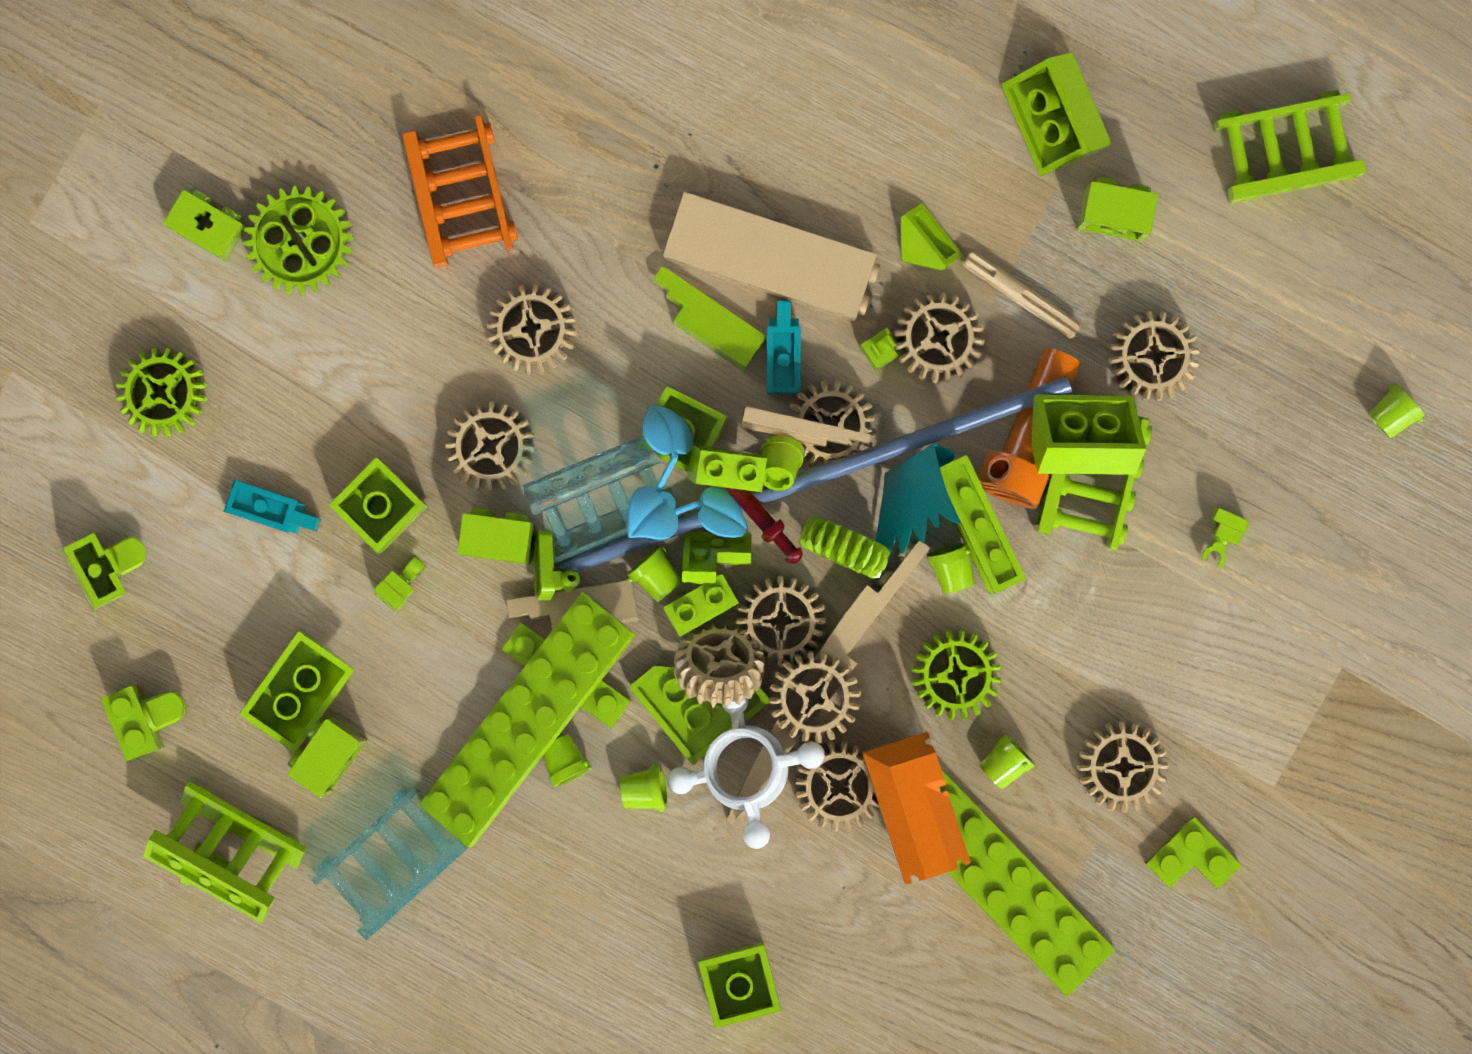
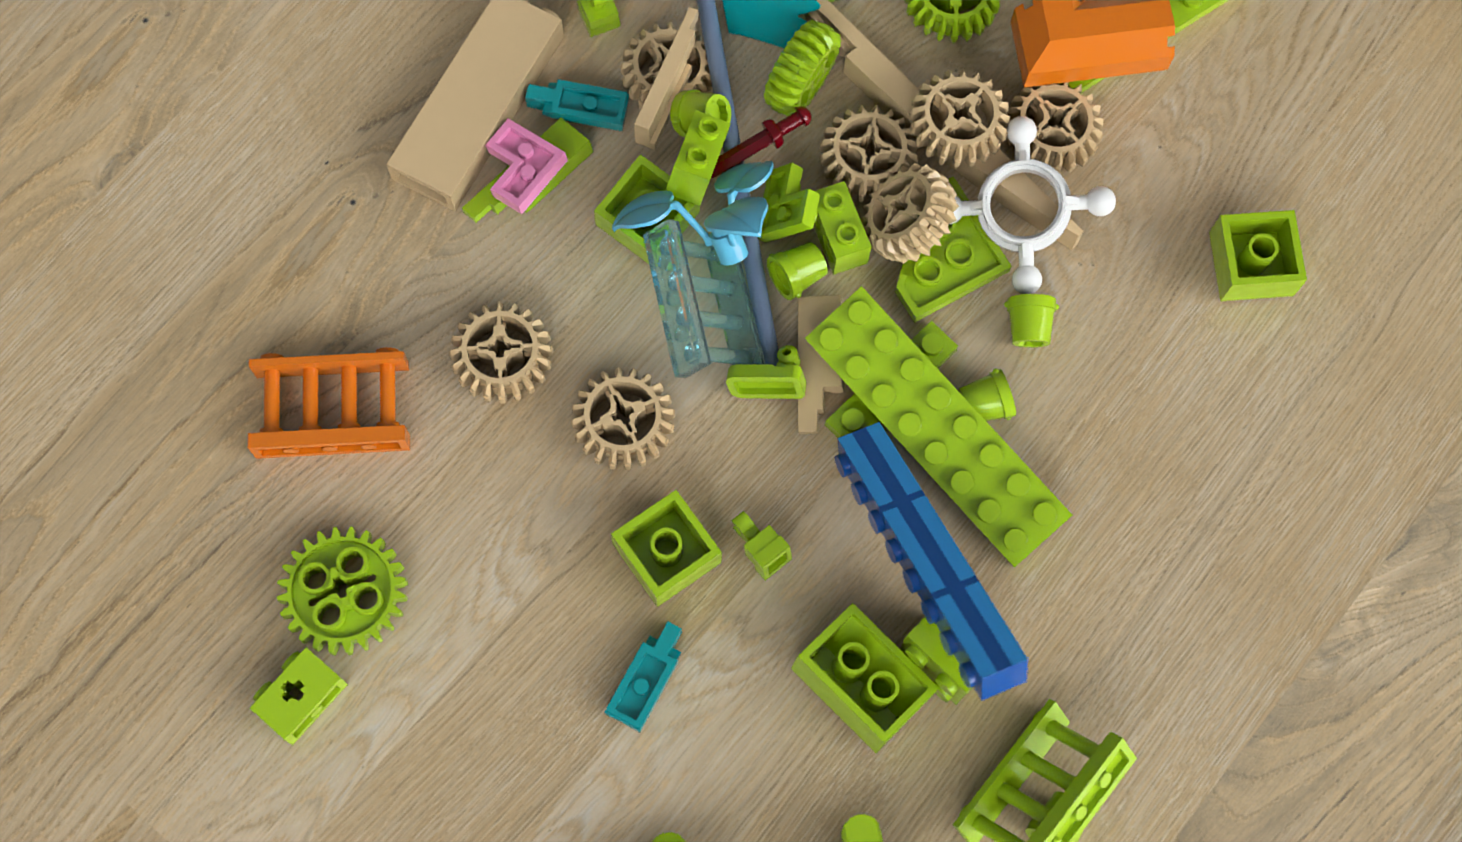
camera: 85 degrees left, 15 degrees down
(150, 402) = (467, 791): lime gear -> none
(394, 727) = (931, 563): none -> brick
(396, 894) = (1094, 574): clear light blue fence -> none
(496, 537) = (728, 421): lime brick -> none
(709, 321) = (531, 164): none -> bright pink plate

